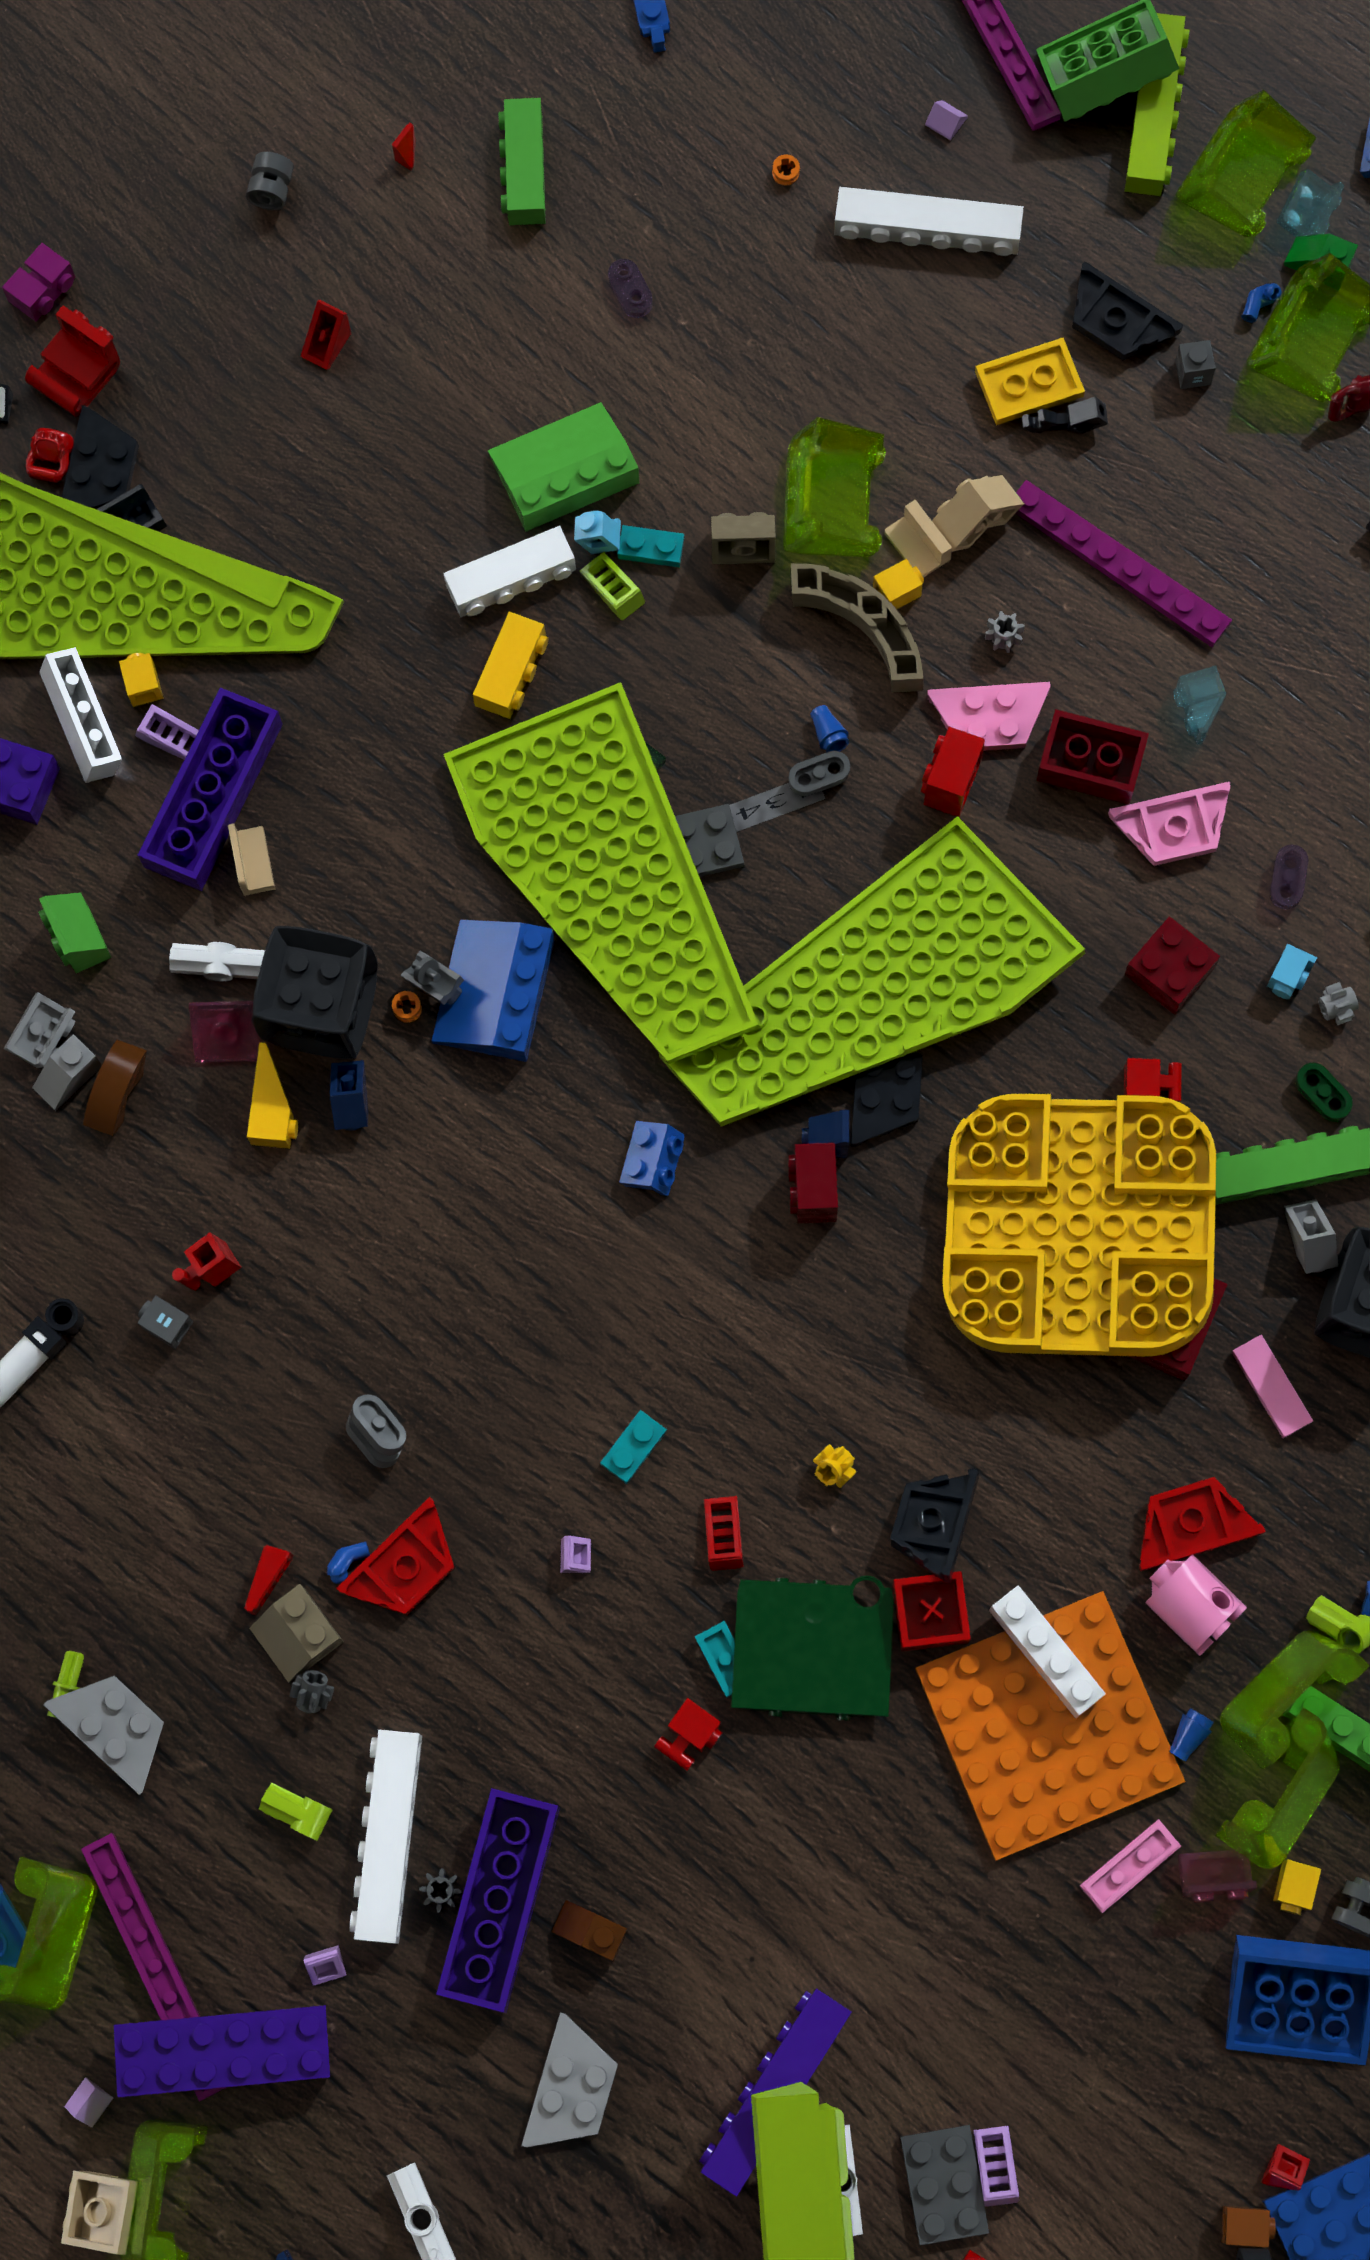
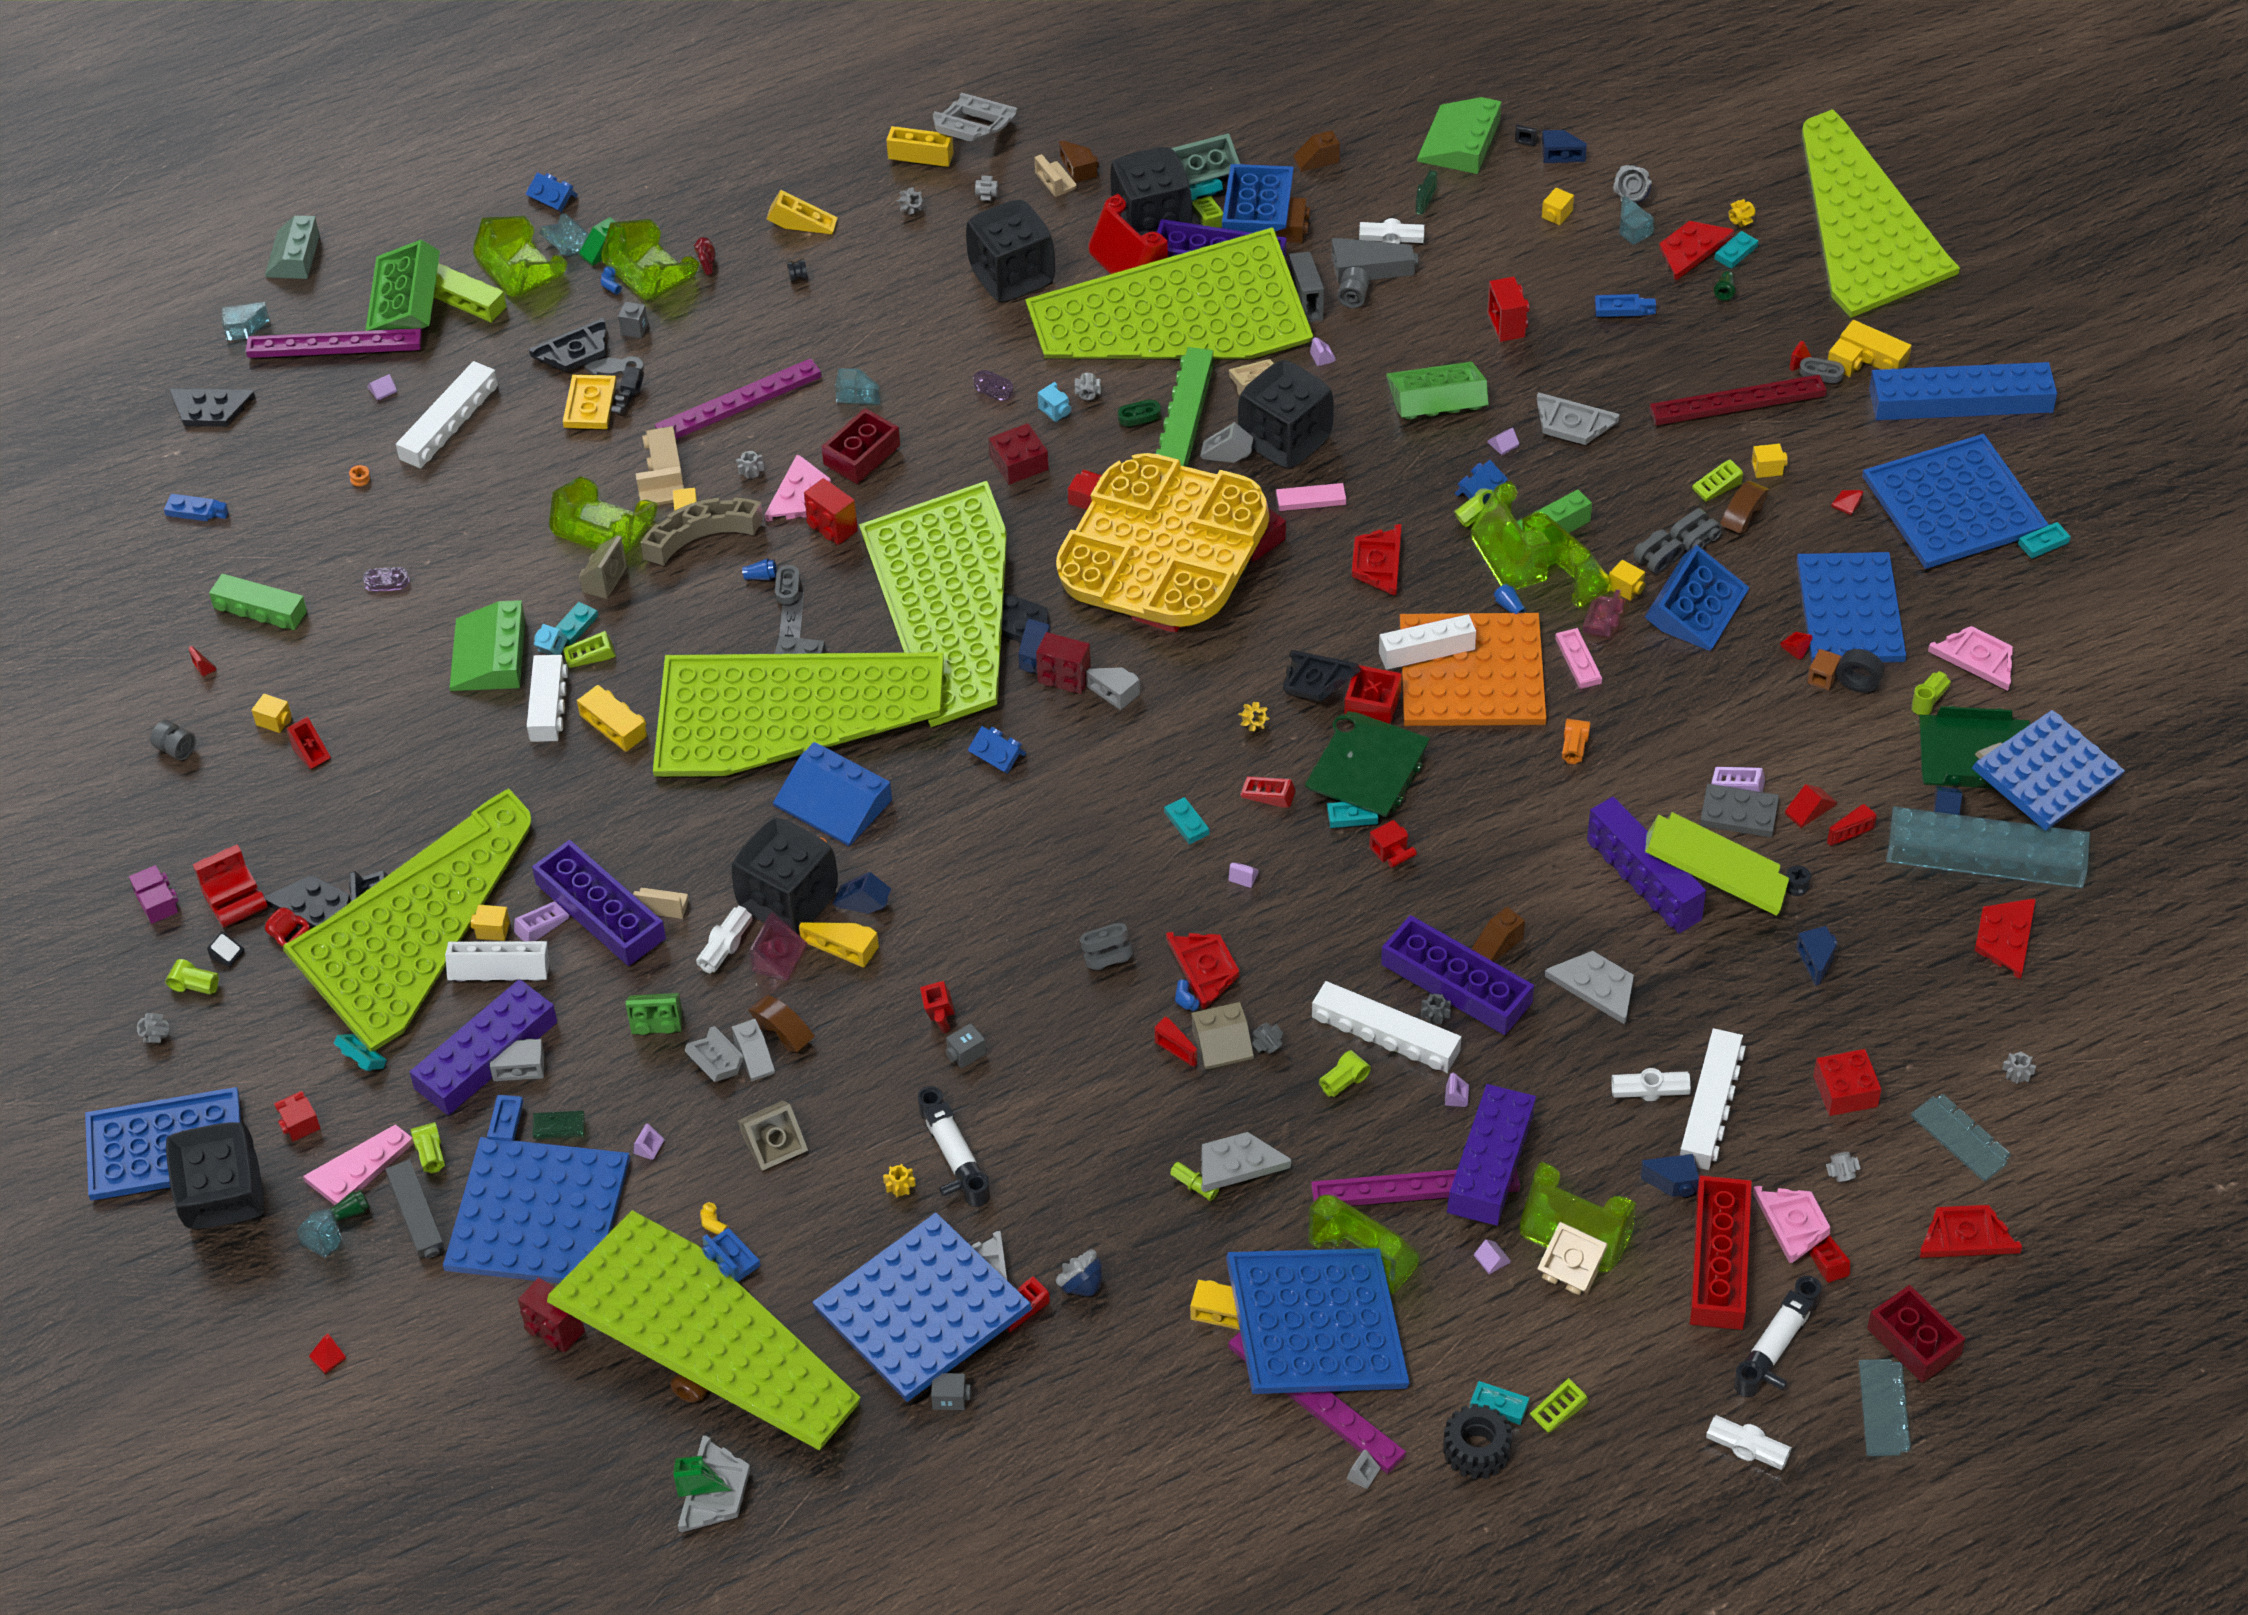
camera: 70 degrees left, 25 degrees down
(358, 269) = (271, 713): none -> yellow brick
(434, 979) = (812, 815): dark grey hips -> none
(817, 1264) = (1114, 685): none -> light grey slope
(980, 1912) = (1575, 737): none -> orange piece
(1111, 380) = (612, 366): none -> brick
(1175, 824) = (927, 426): bright pink wing -> none
(1193, 1602) = (1429, 566): bright pink cylinder -> none

